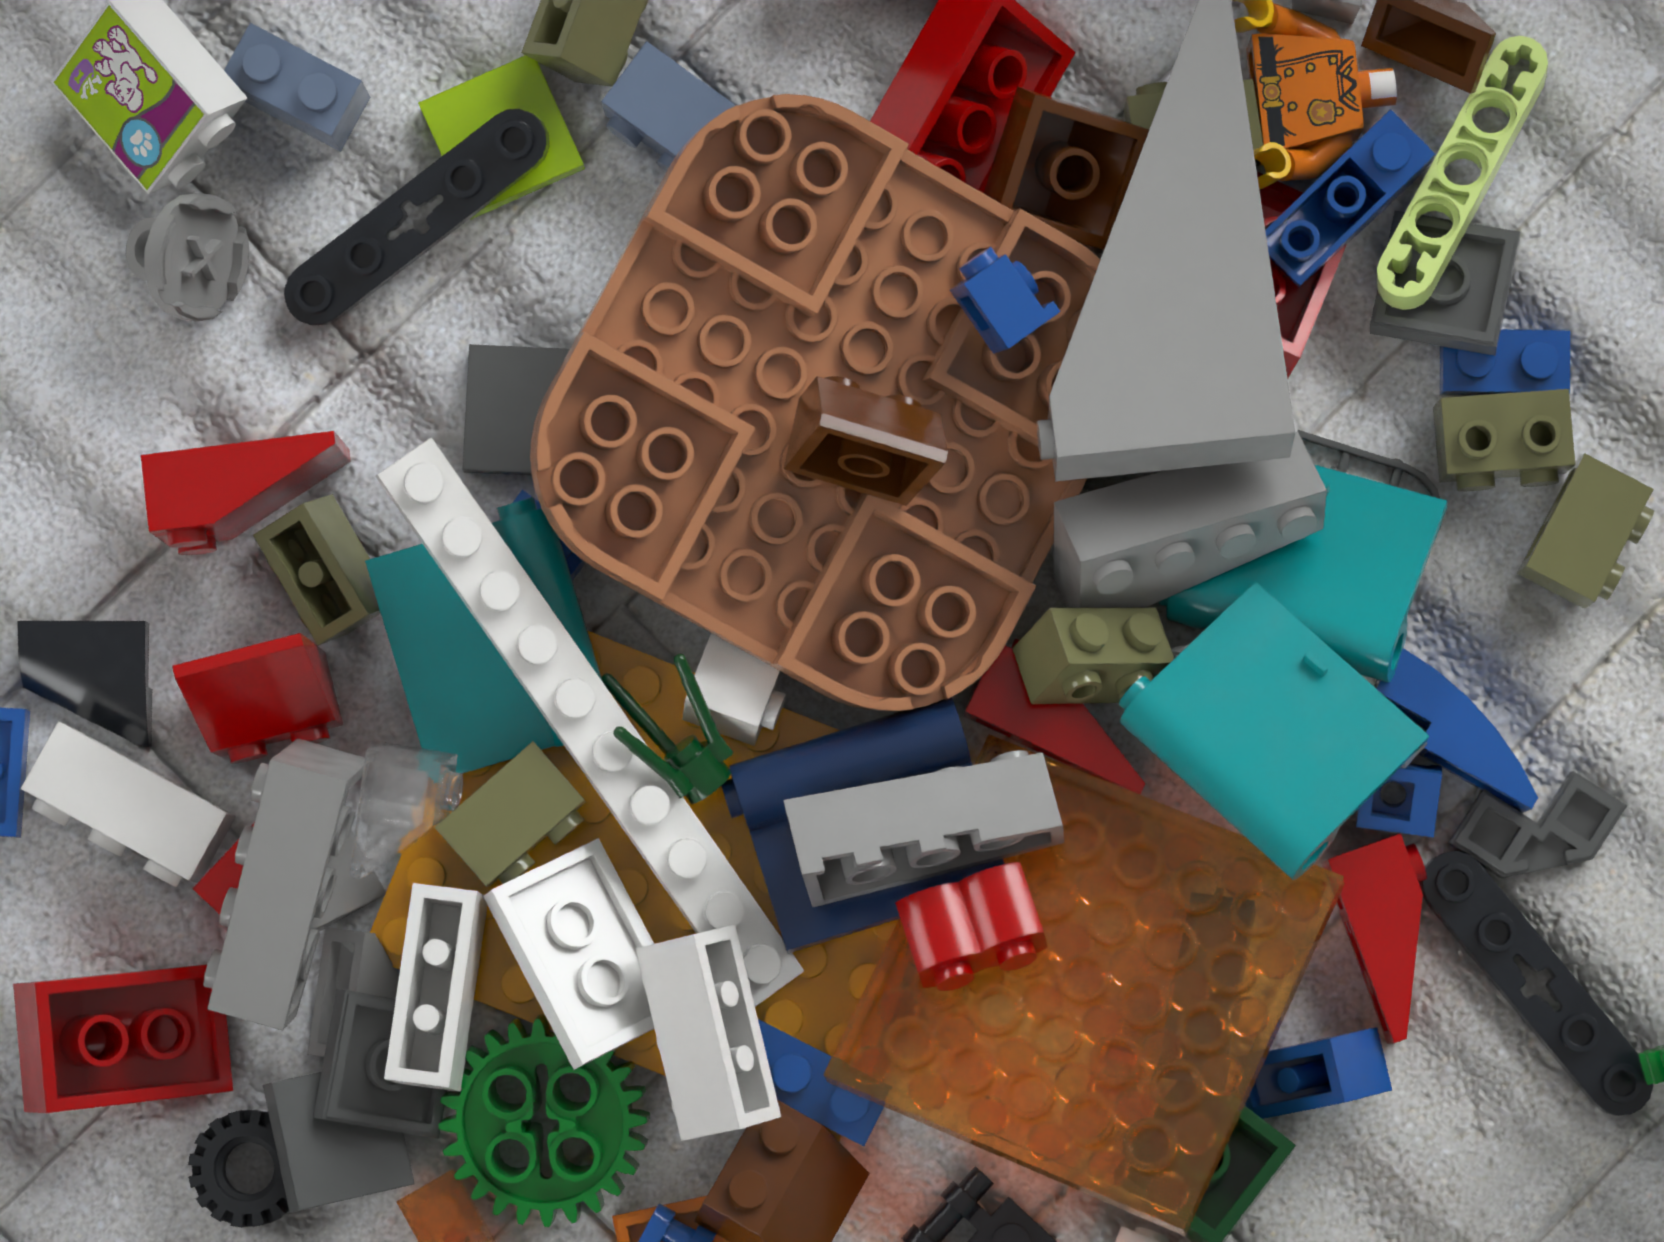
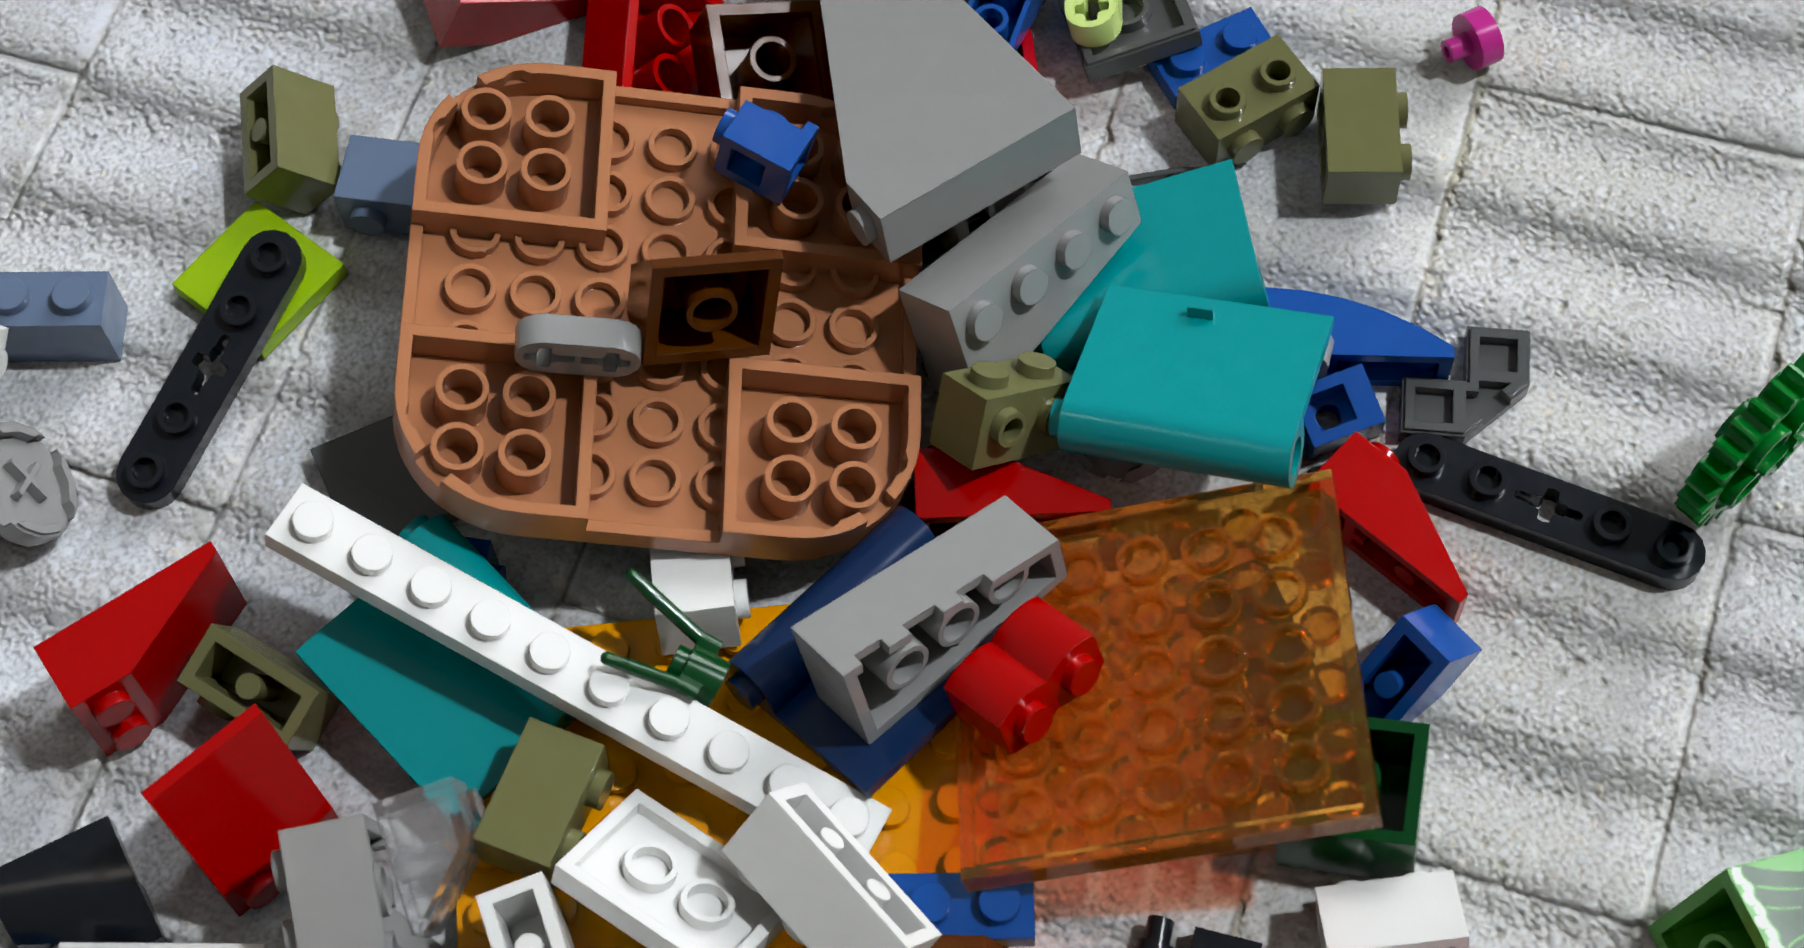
camera: 30 degrees left, 20 degrees down
(730, 434) = (577, 345): none -> light grey beam

